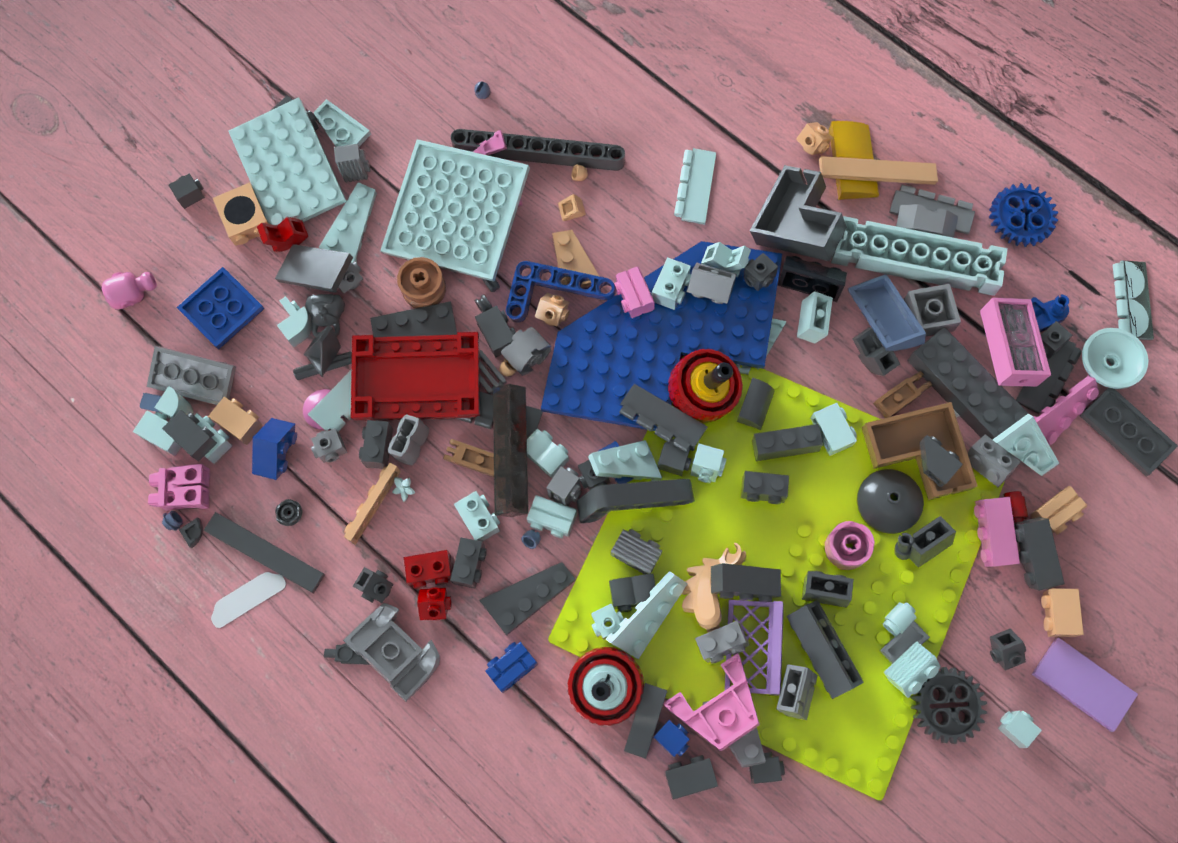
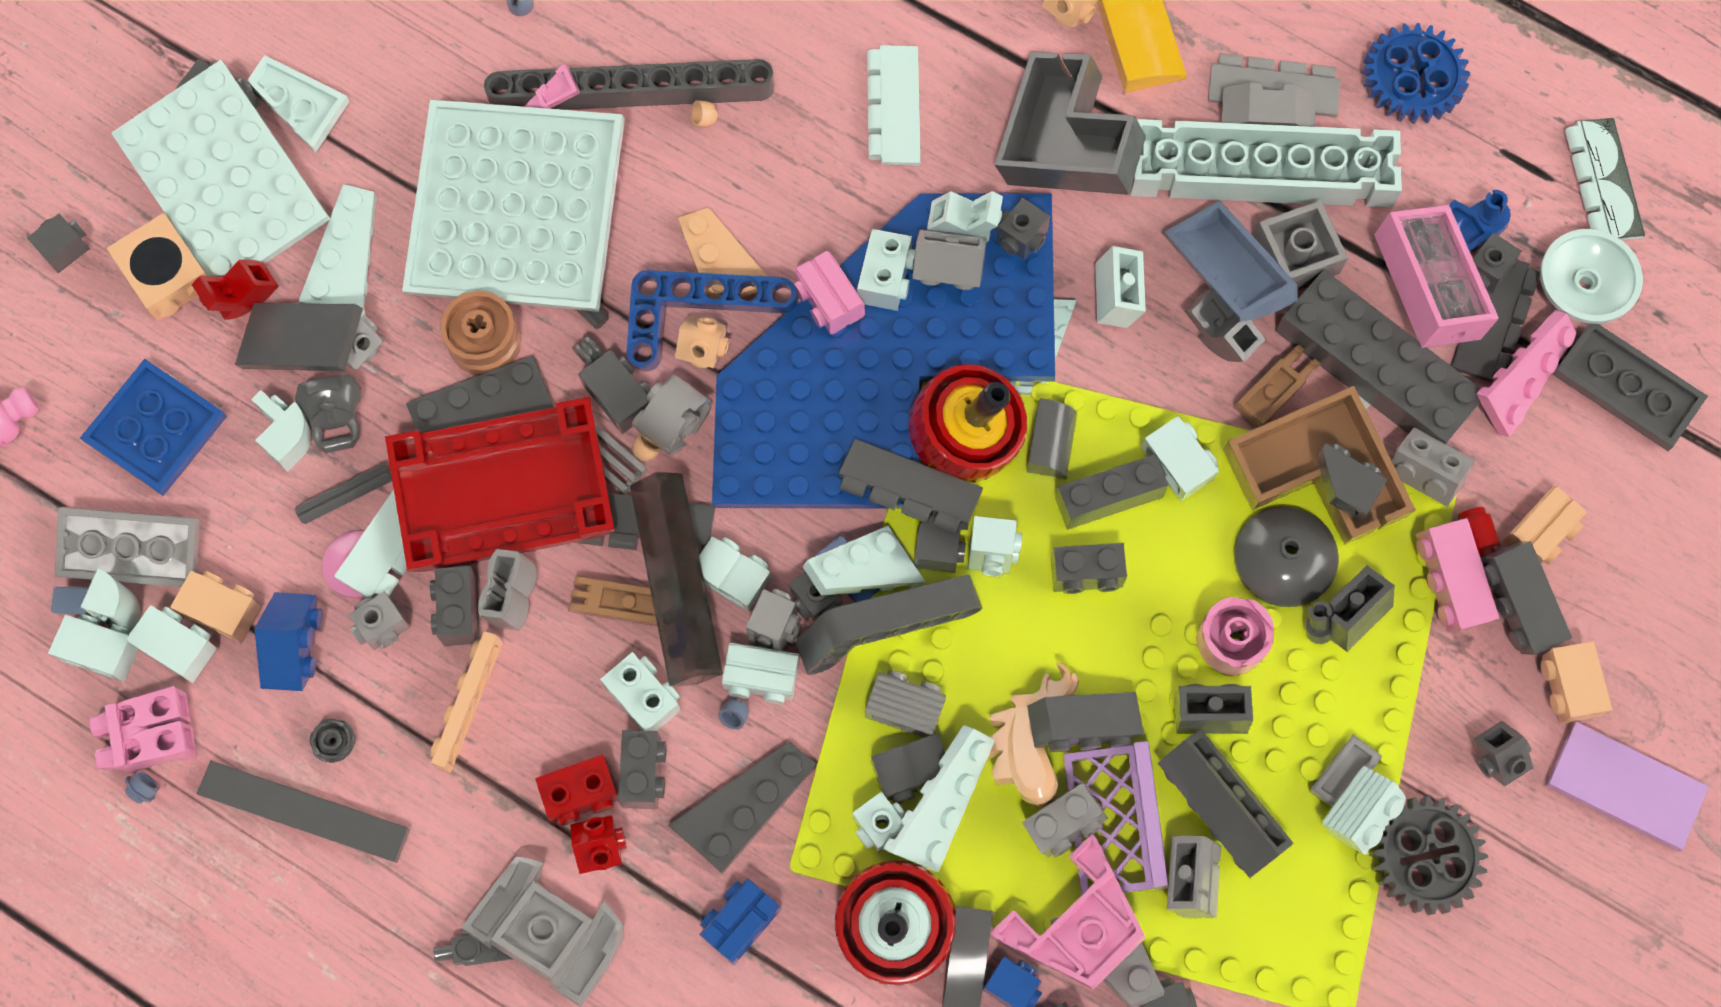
camera: 15 degrees left, 0 degrees up
(189, 435) = (147, 642): dark grey brick -> none
(192, 532) = (178, 800): dark grey tile -> none
(246, 598) = (288, 890): white sticker -> none
(323, 350) = (338, 467): dark grey slope -> none
(352, 162) = (329, 154): light grey brick -> none
(373, 585) = (494, 831): dark grey brick -> none
(403, 487) = (512, 668): light aqua plant -> none
(571, 208) = (701, 172): light nougat slope -> none
(812, 277) = (1105, 224): black slope -> none
(878, 170) = (1179, 37): light nougat tile -> none
(899, 618) = (1331, 735): light aqua brick -> none
(1019, 728) = (1540, 871): light aqua brick -> none
(1028, 445) = (1482, 432): light aqua wing -> none

